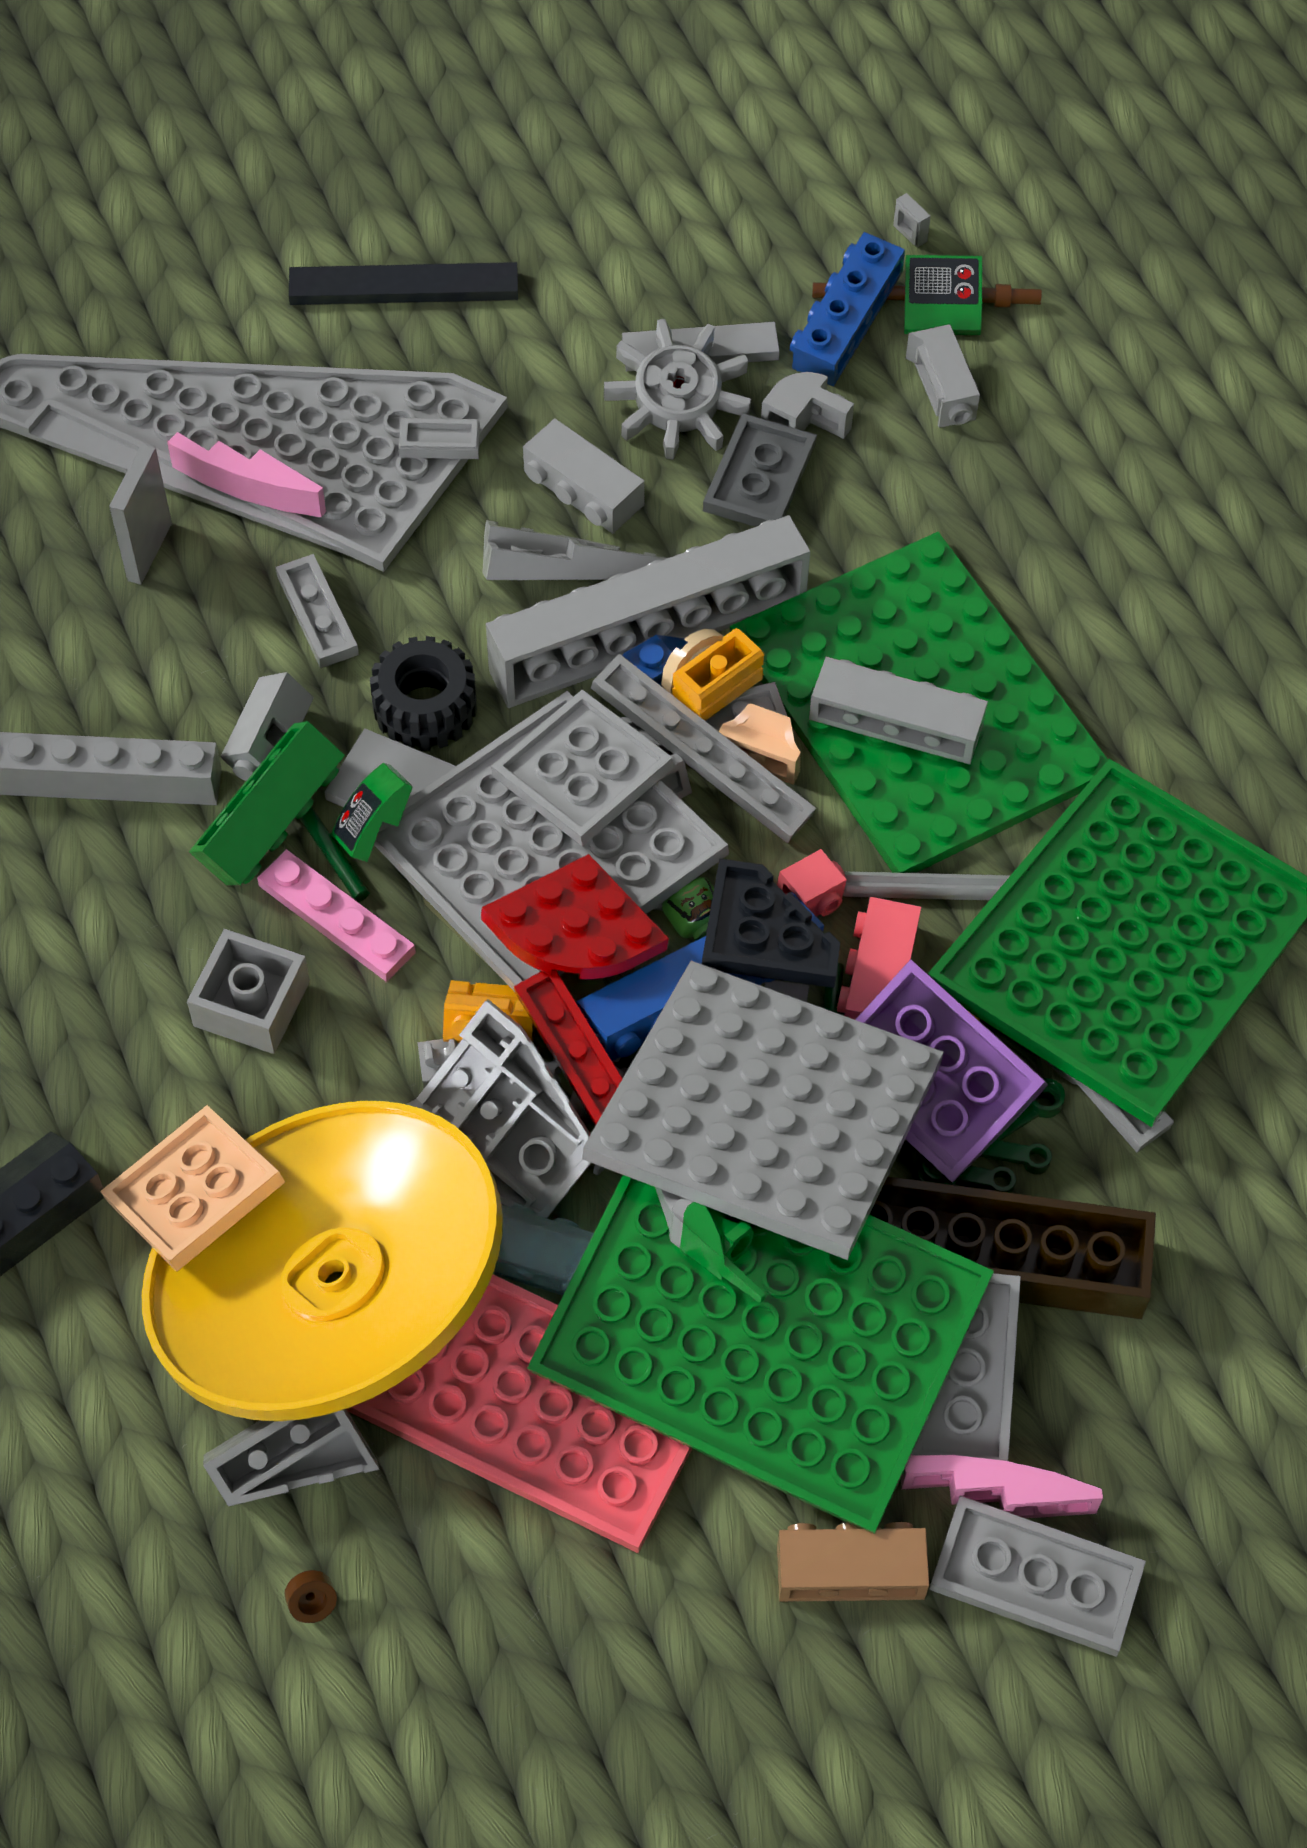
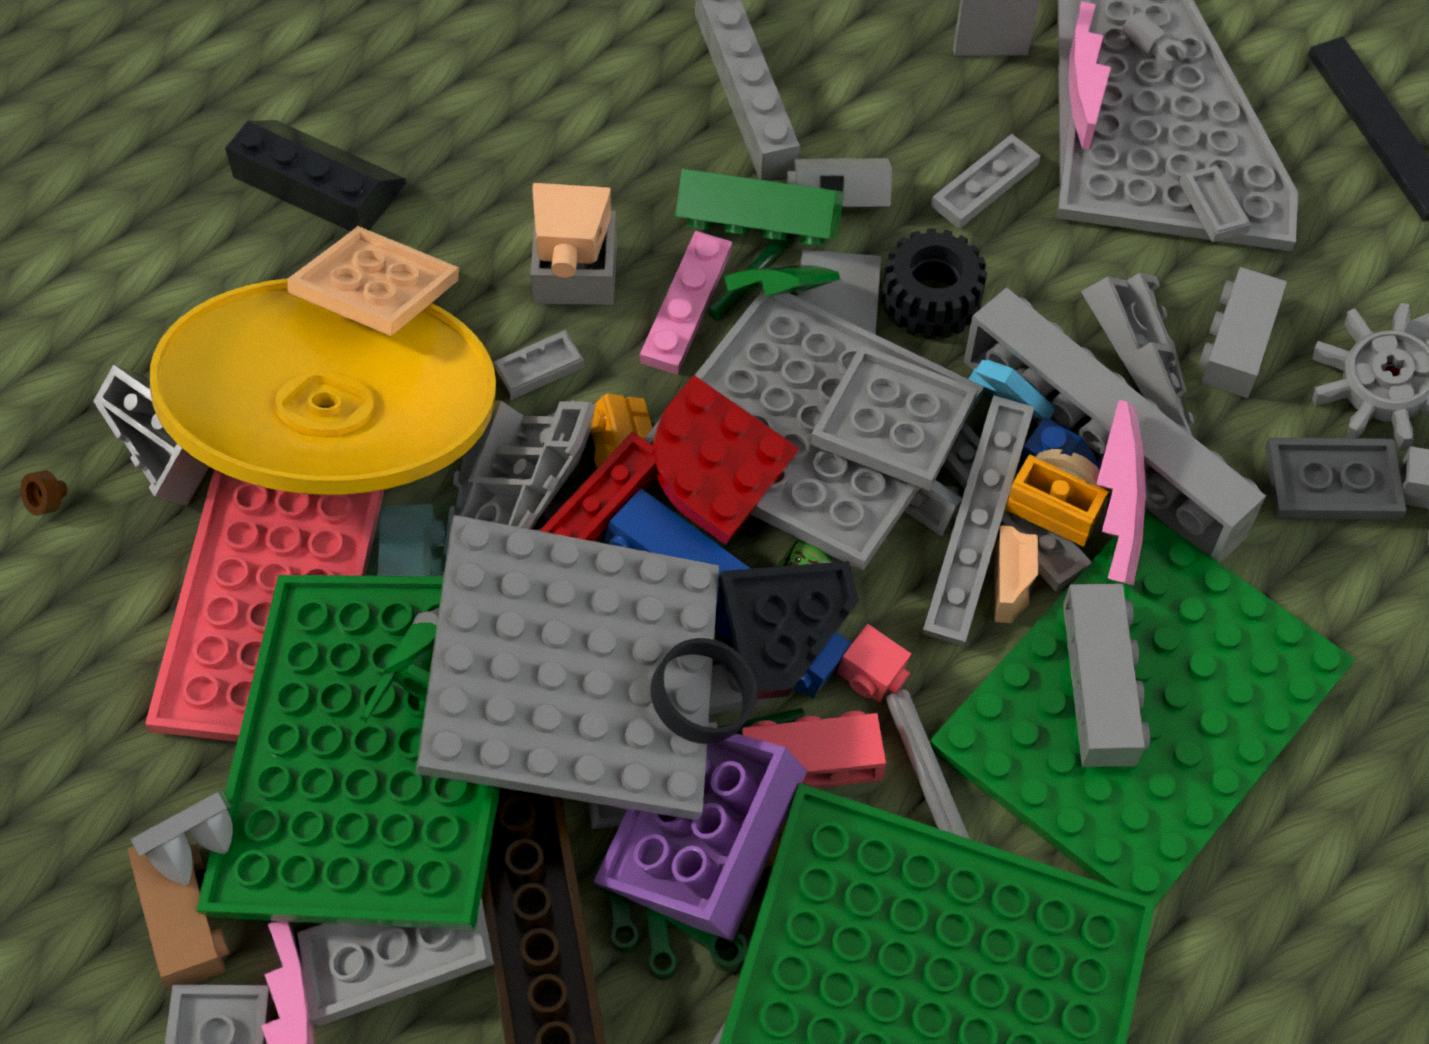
camera: 70 degrees right, 0 degrees up
(230, 409) = (1153, 40): none -> light grey bar
(235, 969) = (570, 224): none -> light nougat torso
(356, 1064) = (538, 365): none -> light grey plate
(580, 670) = (1008, 384): none -> medium azure tile
(731, 609) = (1125, 476): none -> bright pink slope
(792, 1533) = (168, 845): none -> light grey tile
(827, 1036) = (727, 657): none -> black tyre

